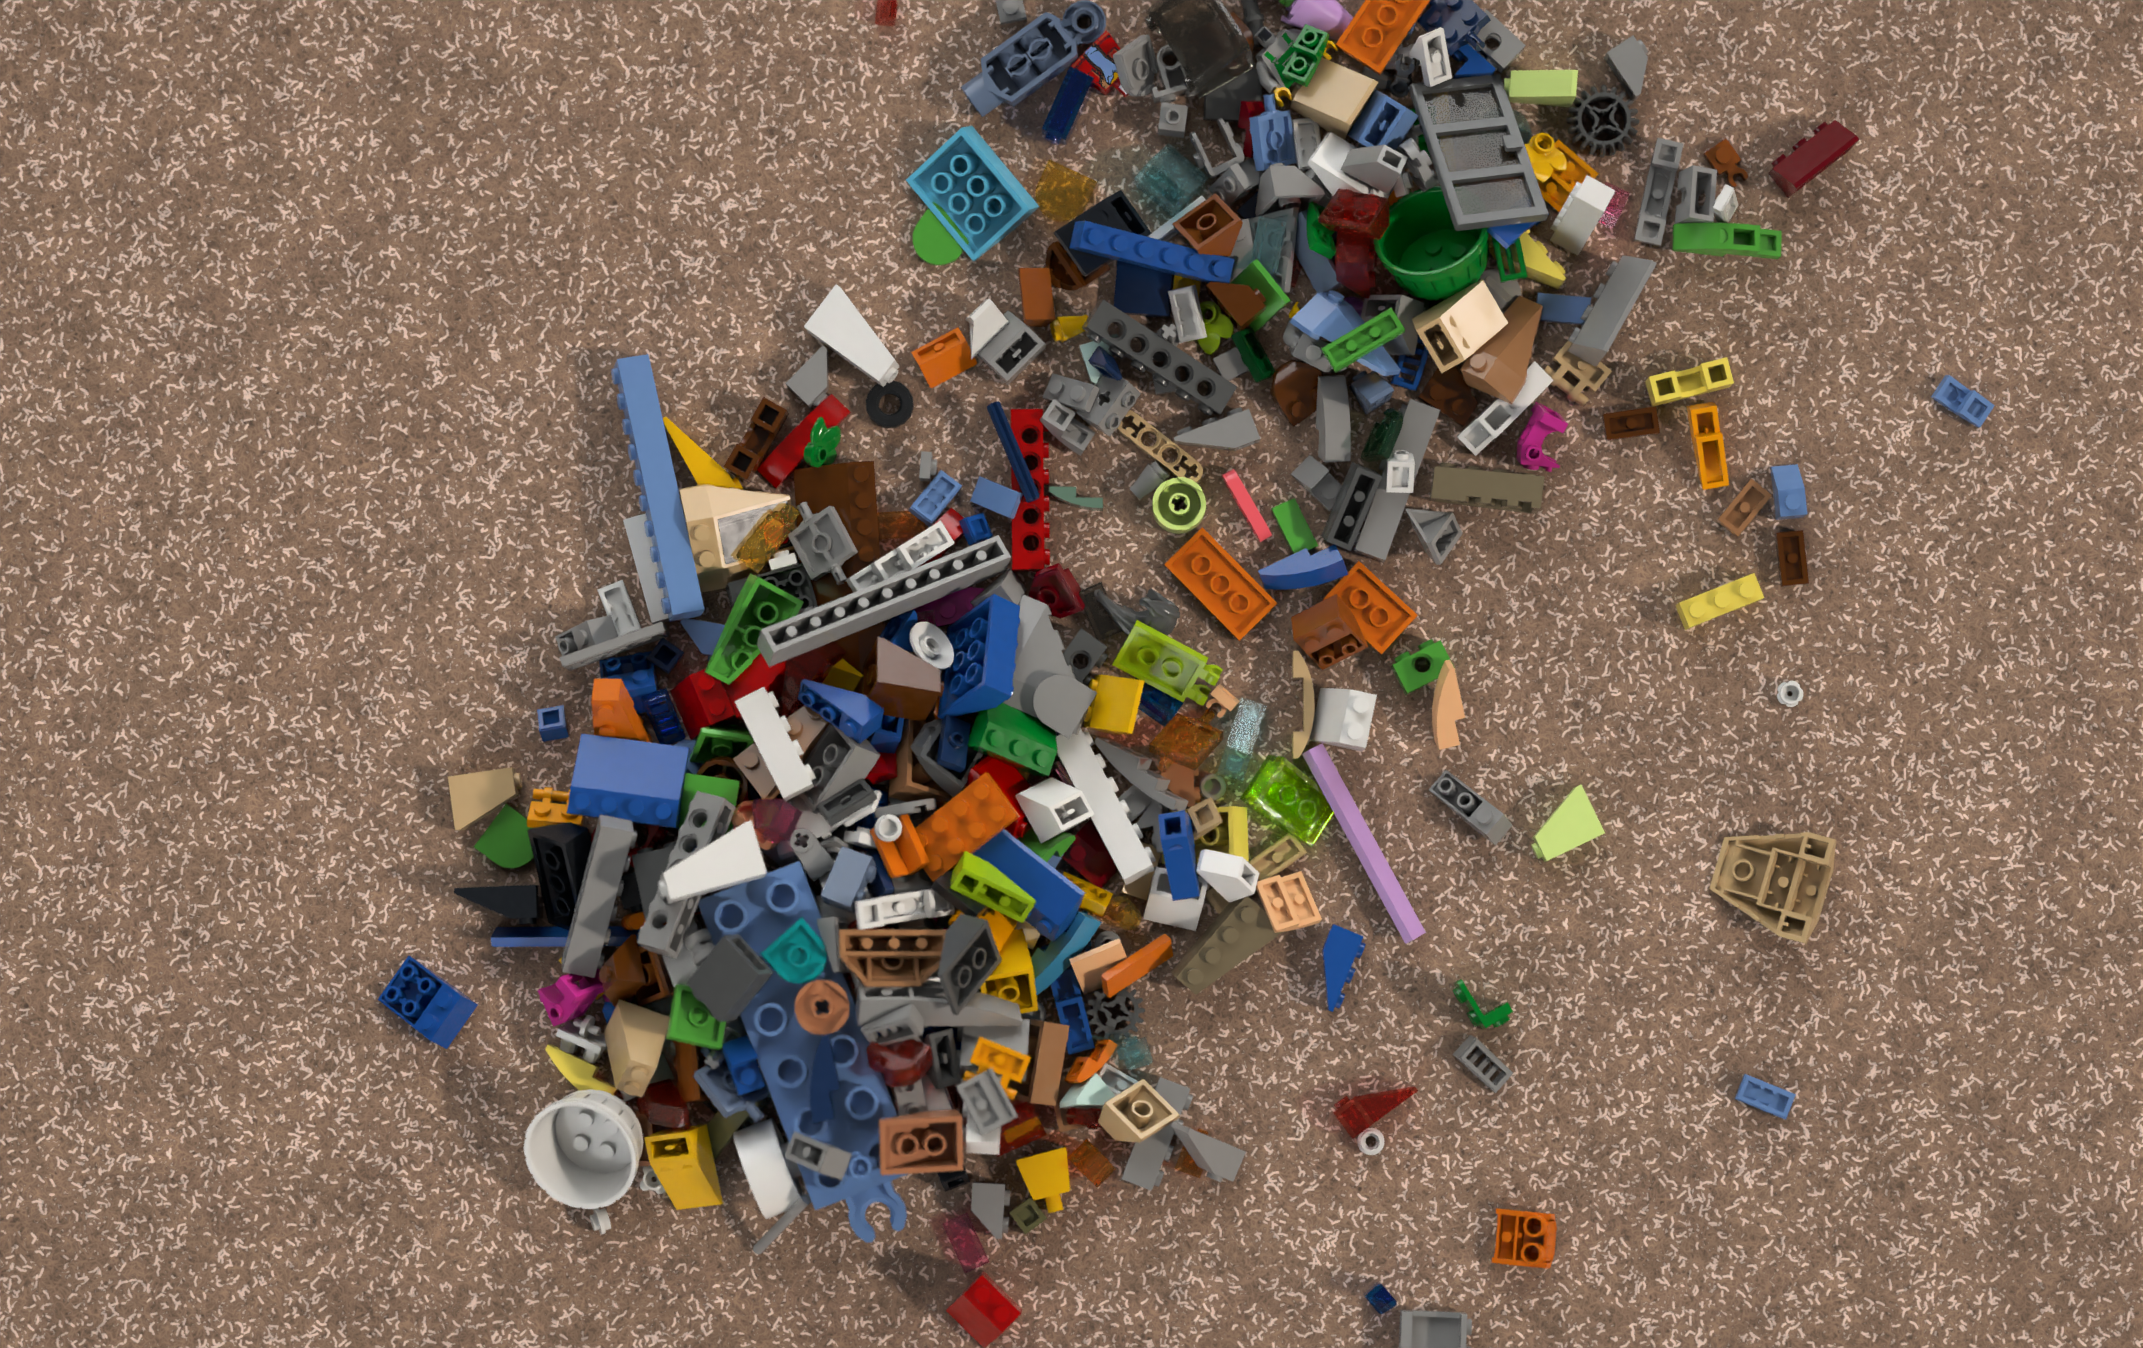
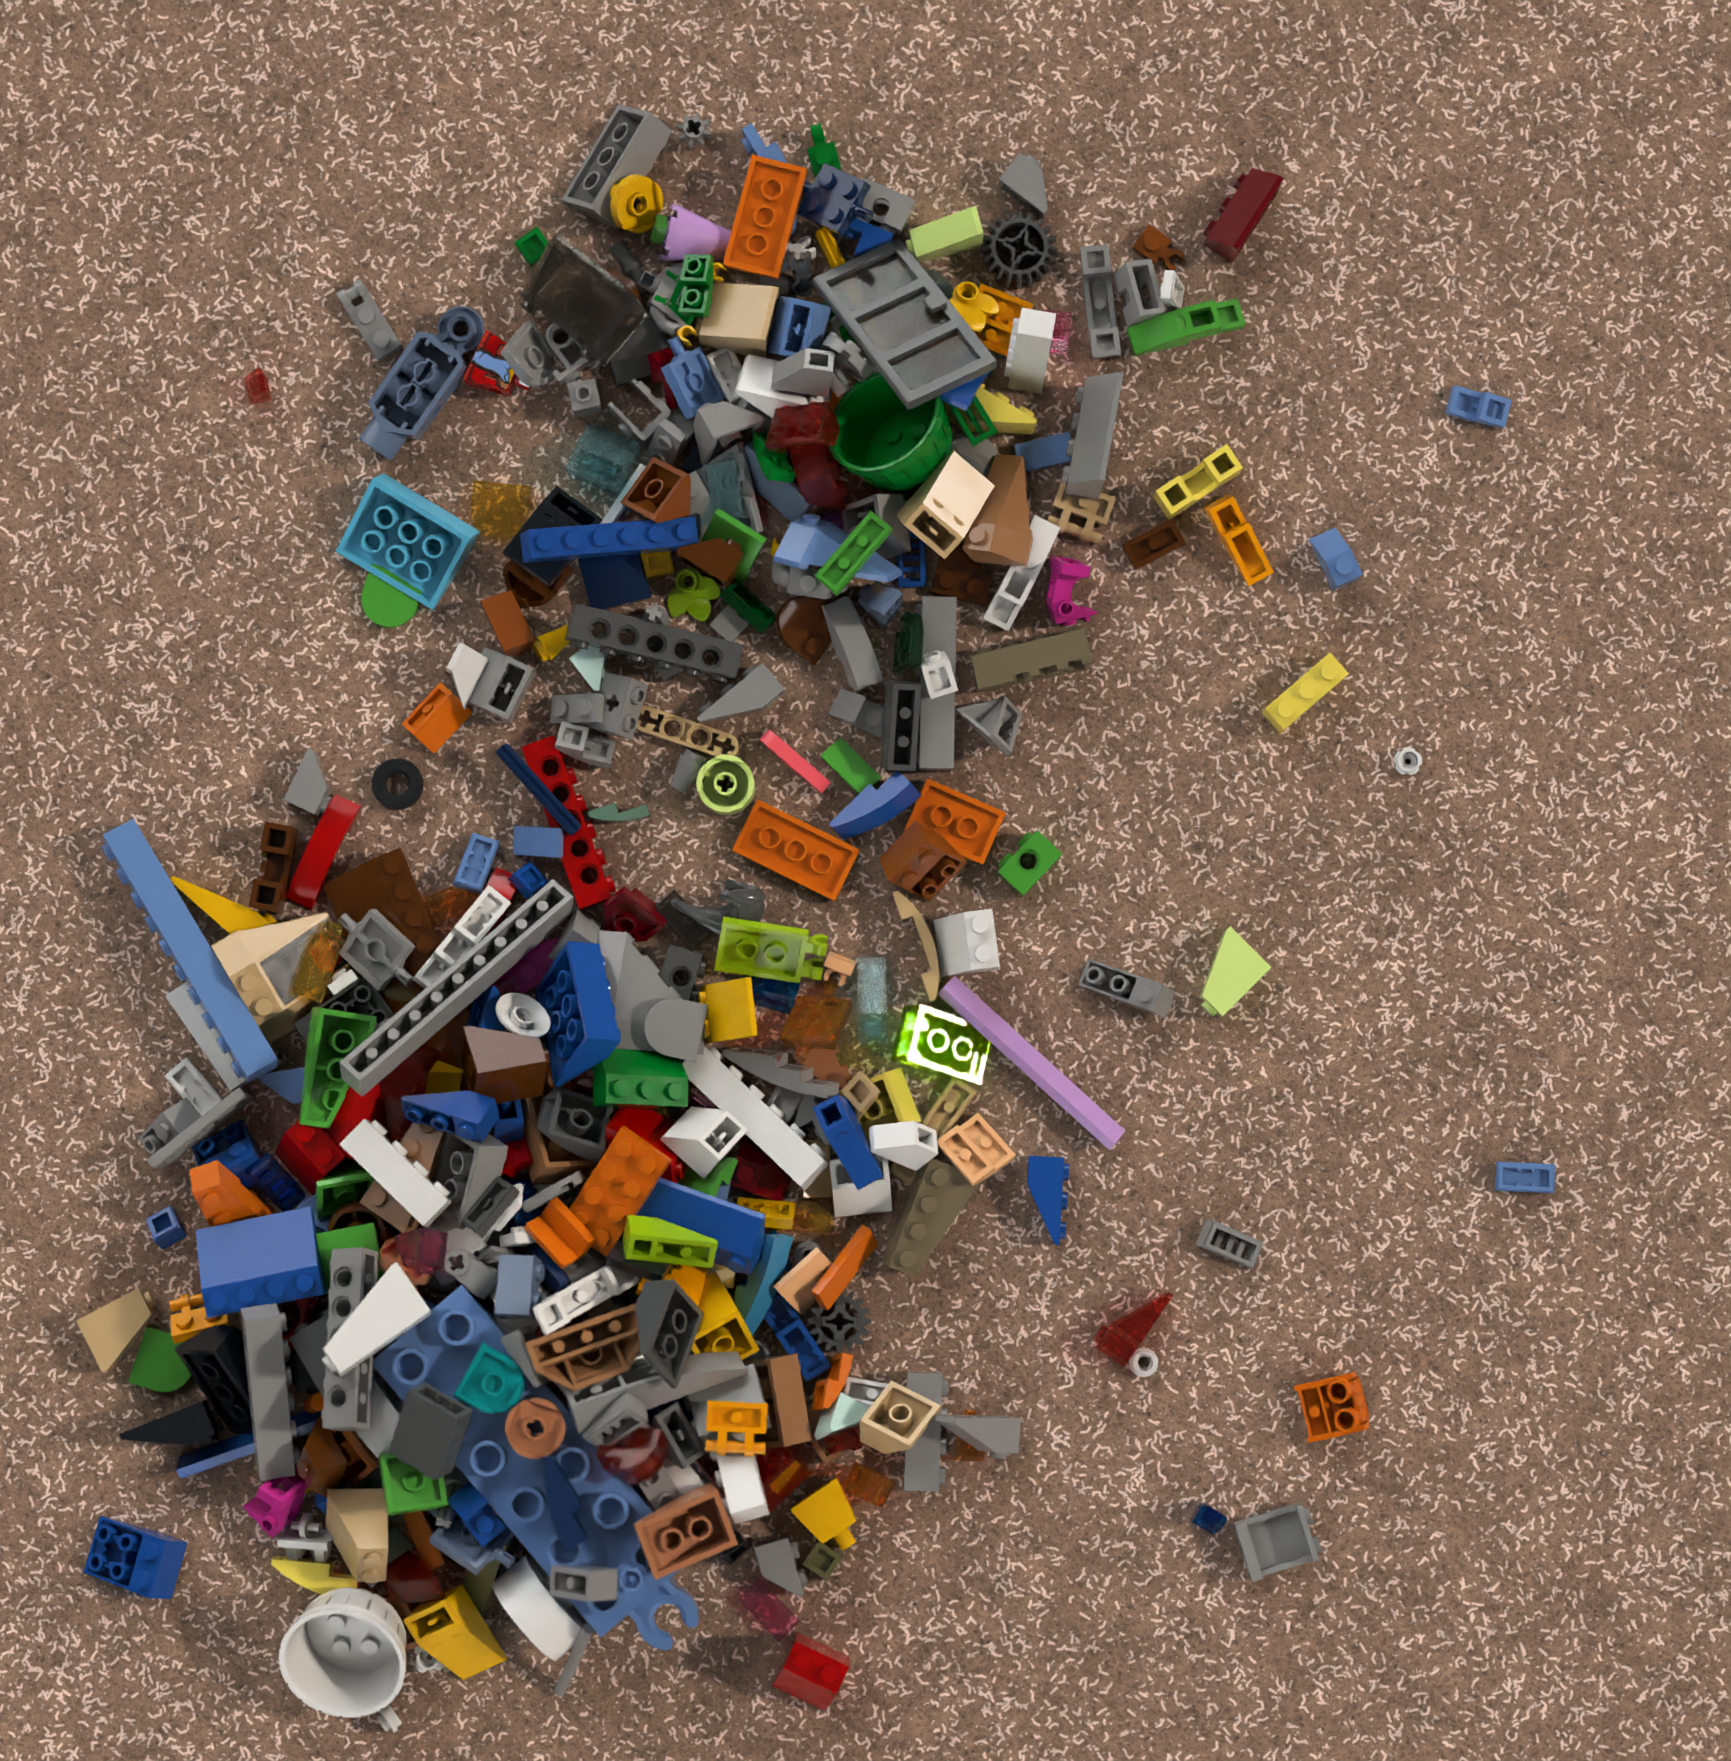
camera: 20 degrees left, 0 degrees up
(665, 656) = (257, 1119): dark blue slope -> none
(700, 945) = (388, 1407): light grey wheel -> none
(822, 445) = (342, 849): green plate -> none
(849, 335) = (331, 728): white slope -> none
(888, 828) = (541, 1218): white plate -> none
(928, 466) = (457, 833): light grey plate -> none
(953, 743) = (579, 1108): dark blue plate -> none
(986, 1101) = (737, 1465): light grey plate -> none
(1068, 106) = (473, 420): clear blue slope -> none
(1105, 364) = (601, 668): dark blue slope -> none
(1135, 1052) = (873, 1356): clear light blue bracket -> none
(1187, 314) = (667, 588): white plate -> none
(1212, 786) = (859, 1058): light grey tile -> none
(1433, 56) = (825, 241): white slope -> none
(1446, 708) = (1067, 896): light nougat slope -> none
(1494, 1017) = (1224, 1193): green bracket -> none
(1744, 507) = (1296, 590): medium nougat plate -> none
(1777, 879) = (1460, 954): tan wedge -> none
(1791, 558) = (1362, 624): reddish brown plate -> none

